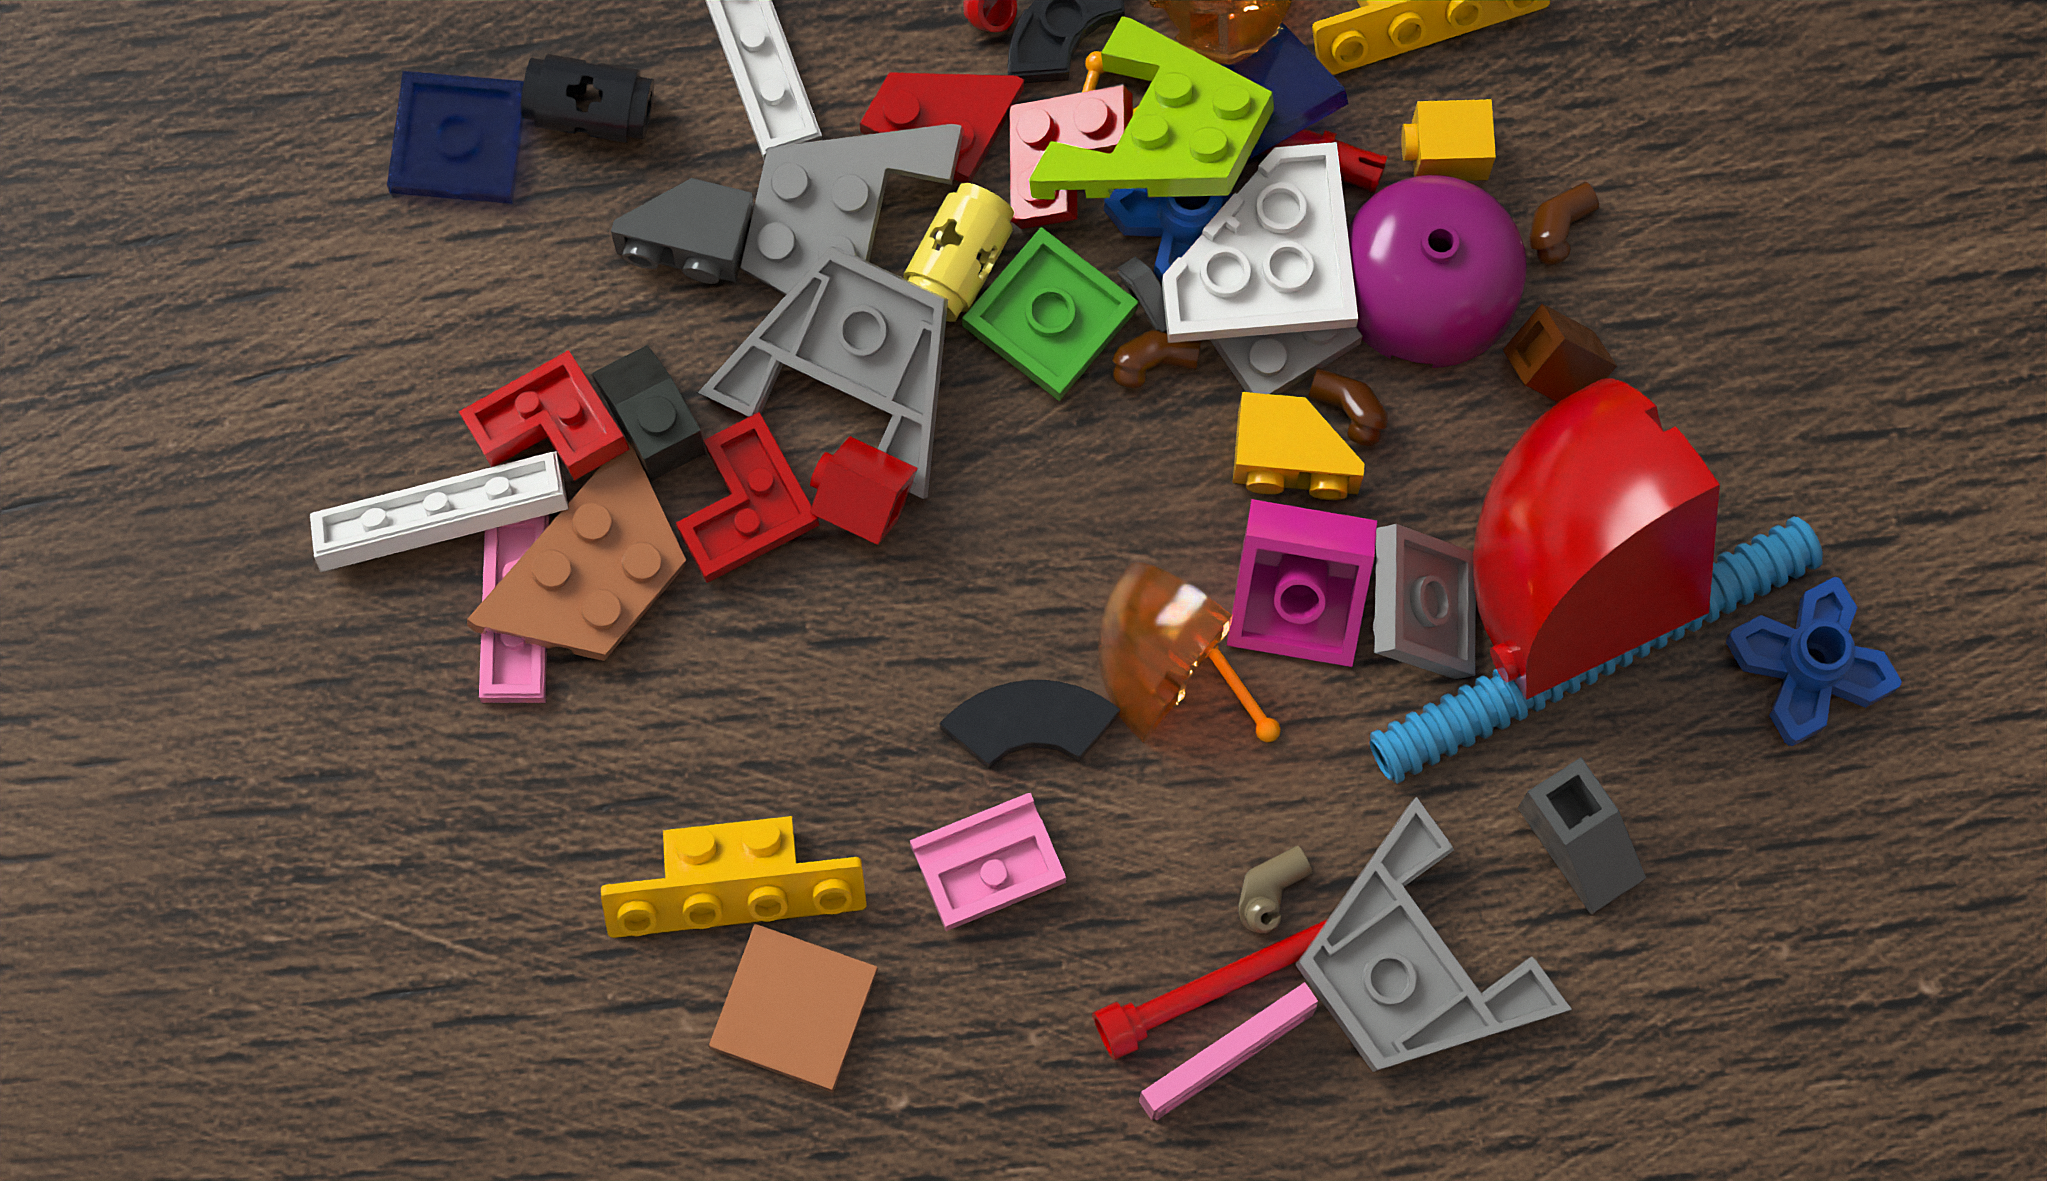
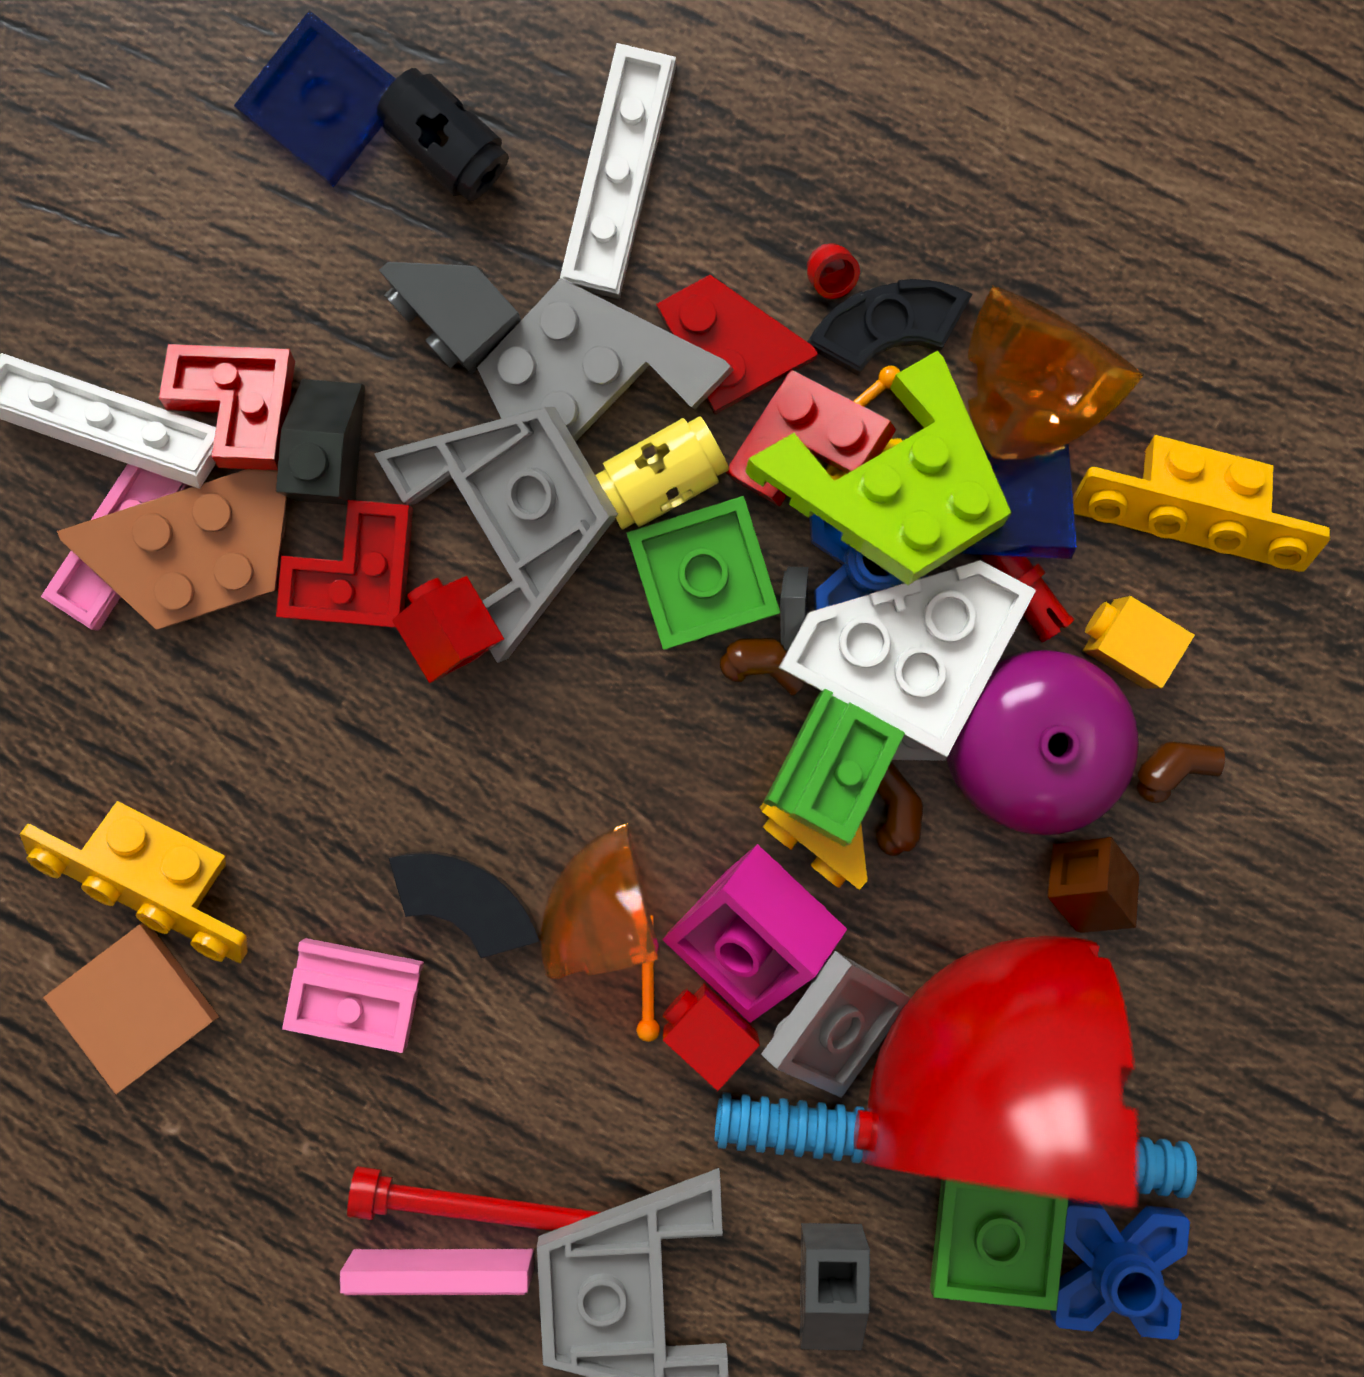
camera: 35 degrees right, 15 degrees up
(1264, 888) = (556, 1157): dark tan arm -> none
(1271, 382) = (834, 768): none -> bright green plate
(1322, 689) = (709, 1035): none -> red brick
(1693, 703) = (998, 1246): none -> bright green plate

